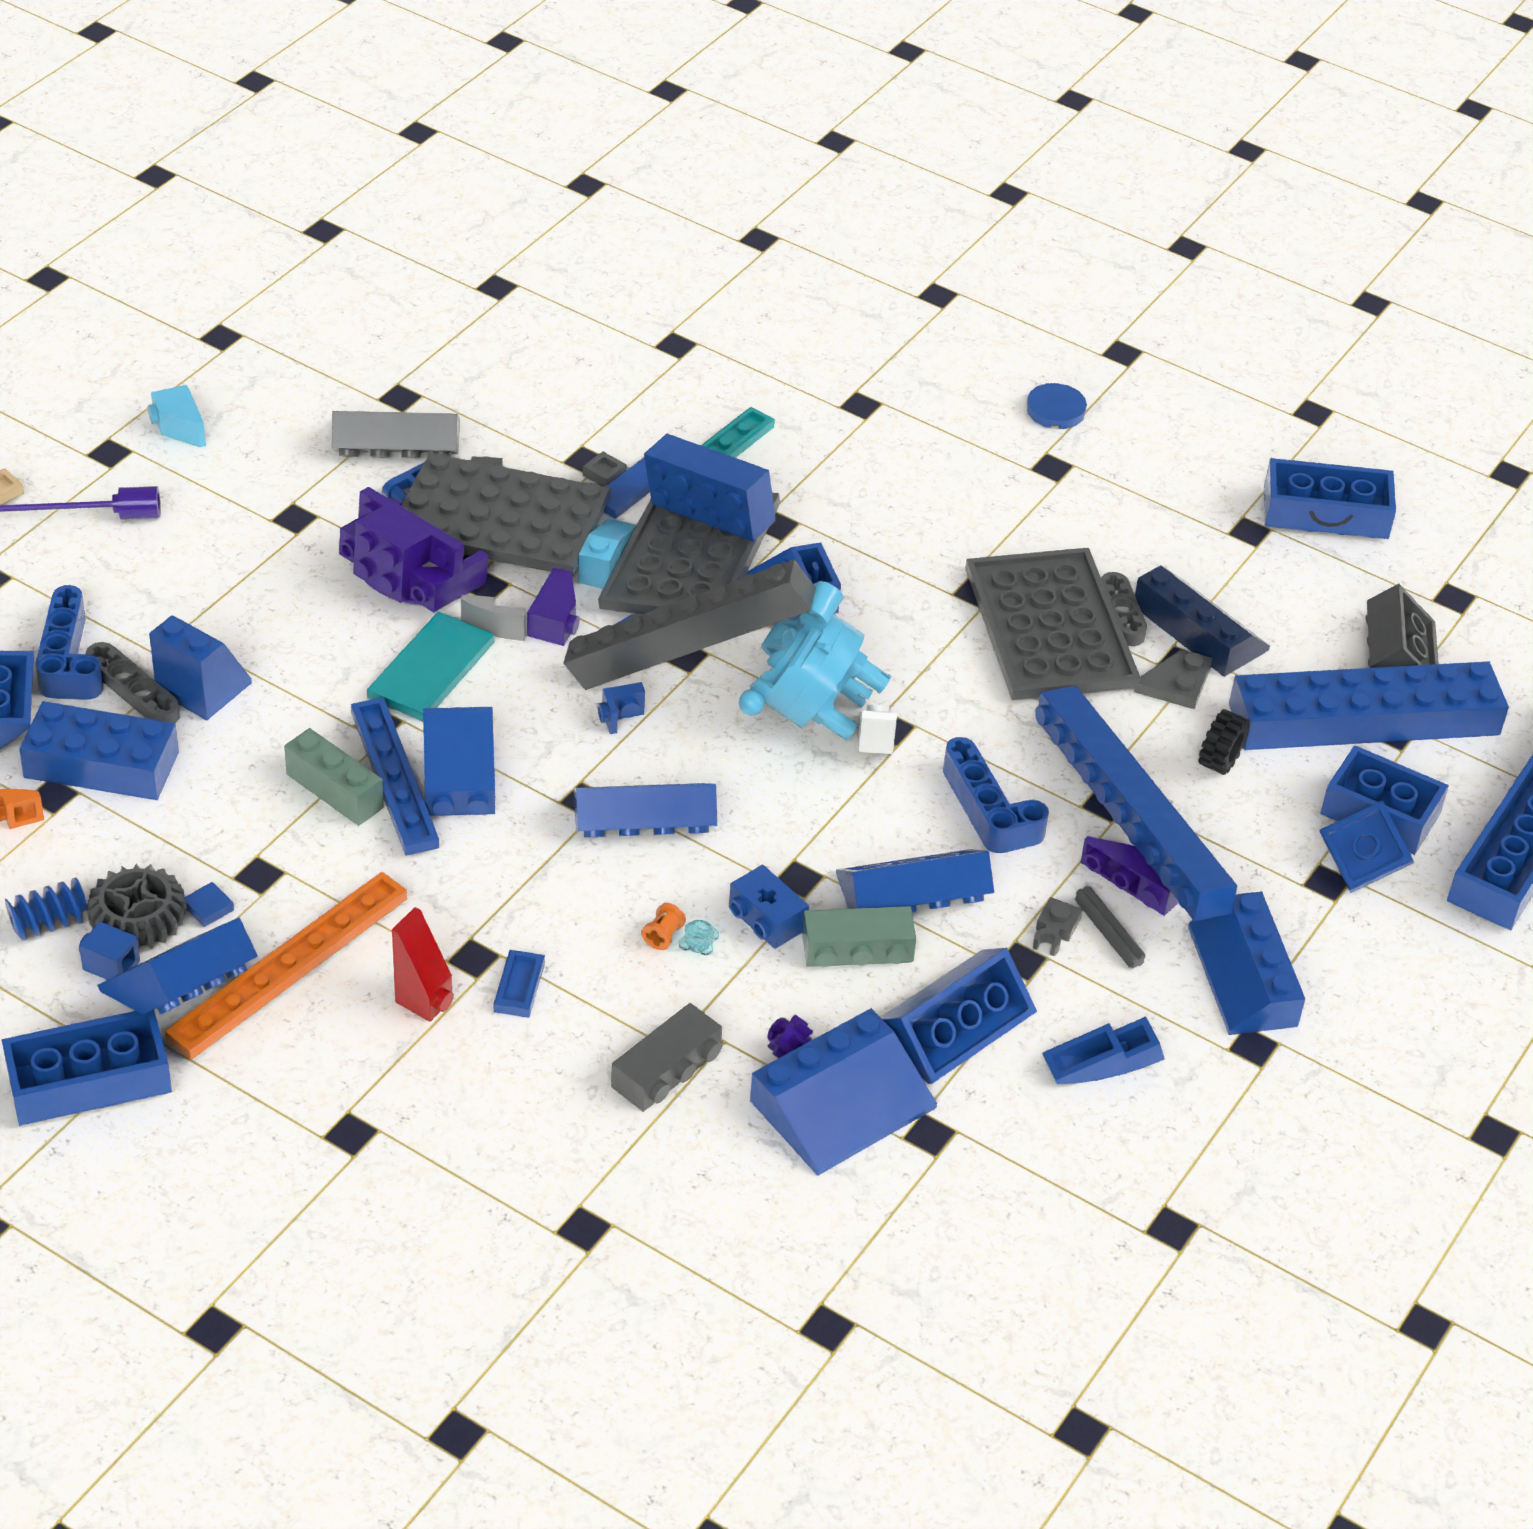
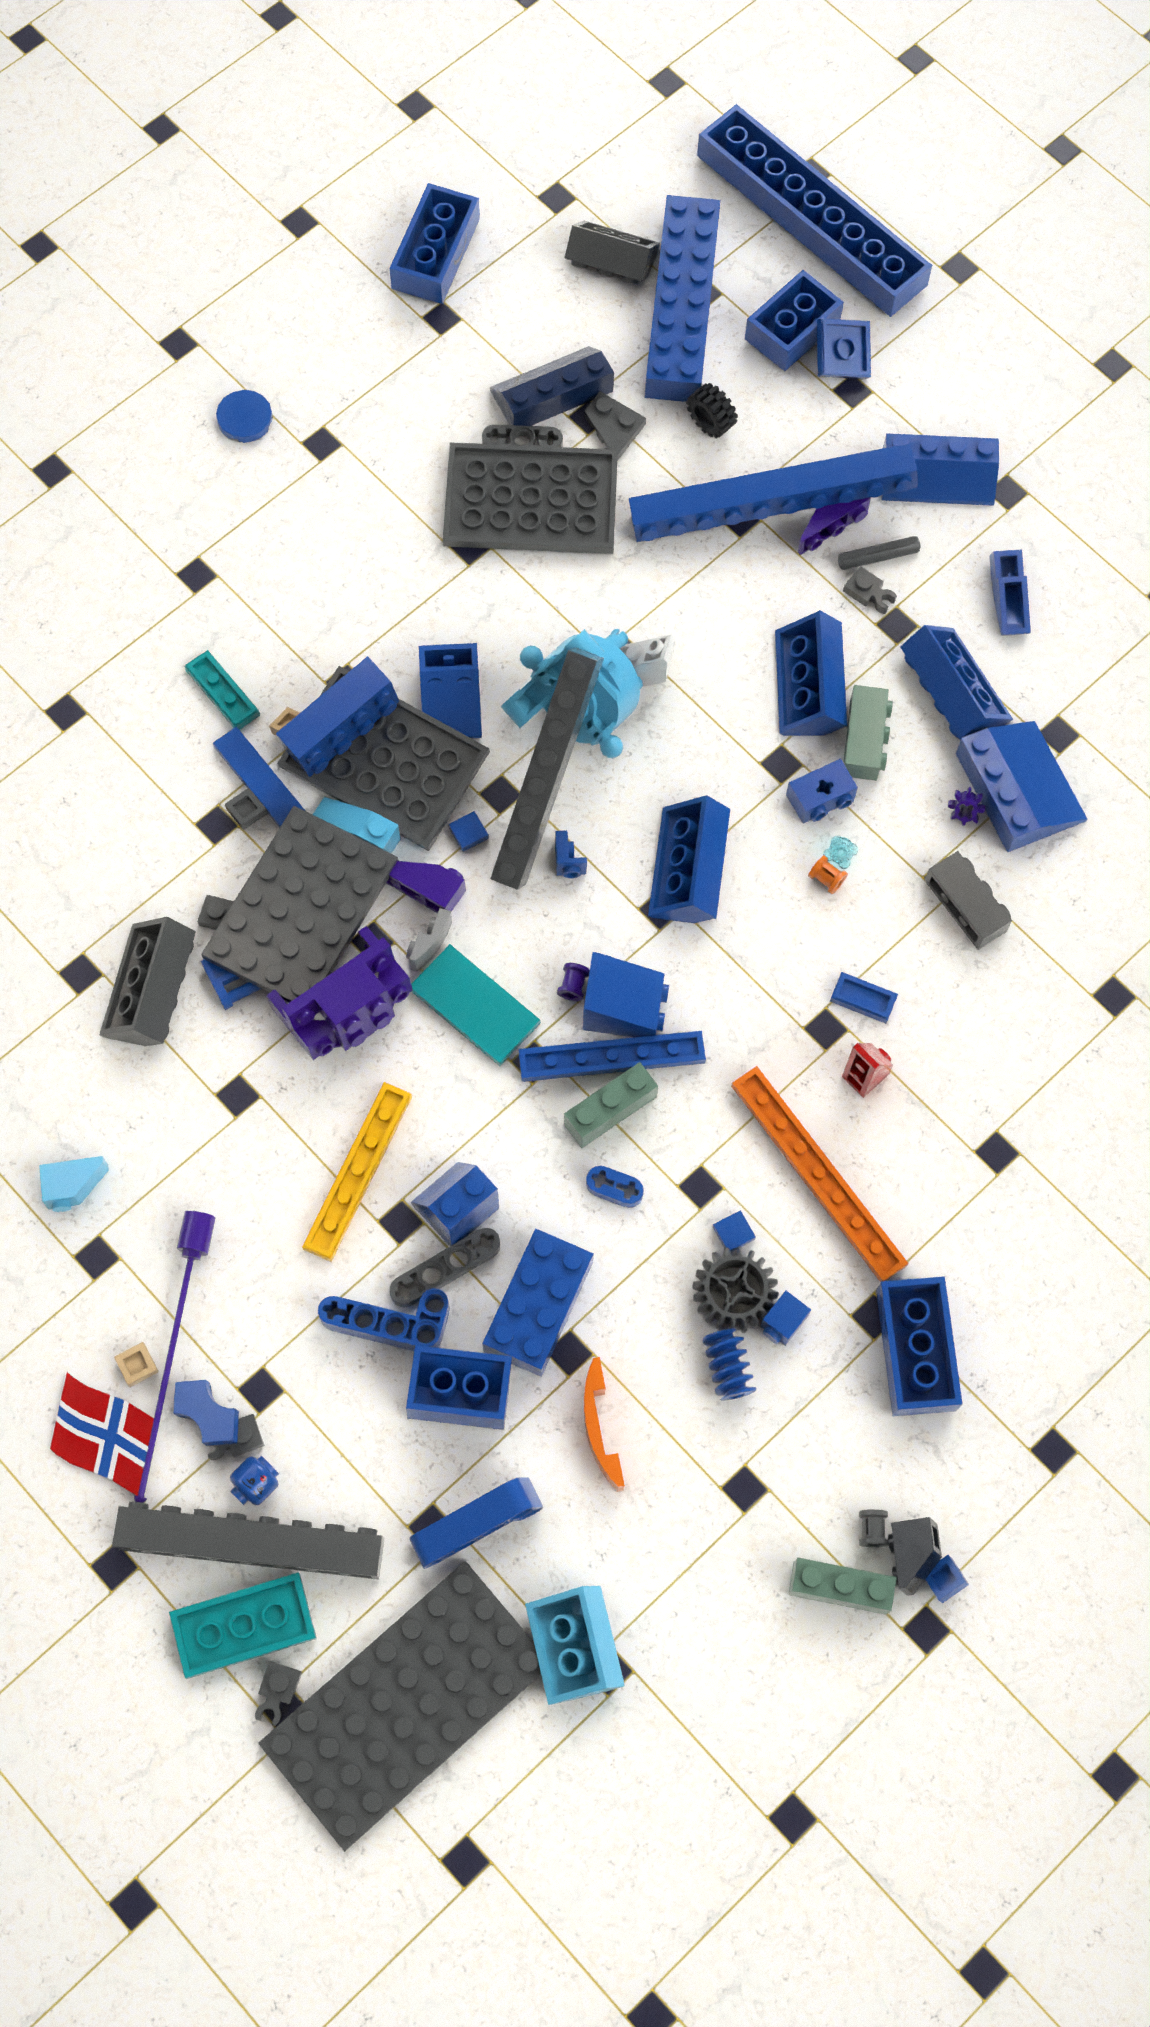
camera: 75 degrees left, 25 degrees up
(183, 970) = (837, 1257): blue slope -> none
(228, 608) = (357, 1172): none -> yellow tile
(250, 801) = (617, 1179): none -> blue beam
(997, 822) = (726, 597): blue beam -> none

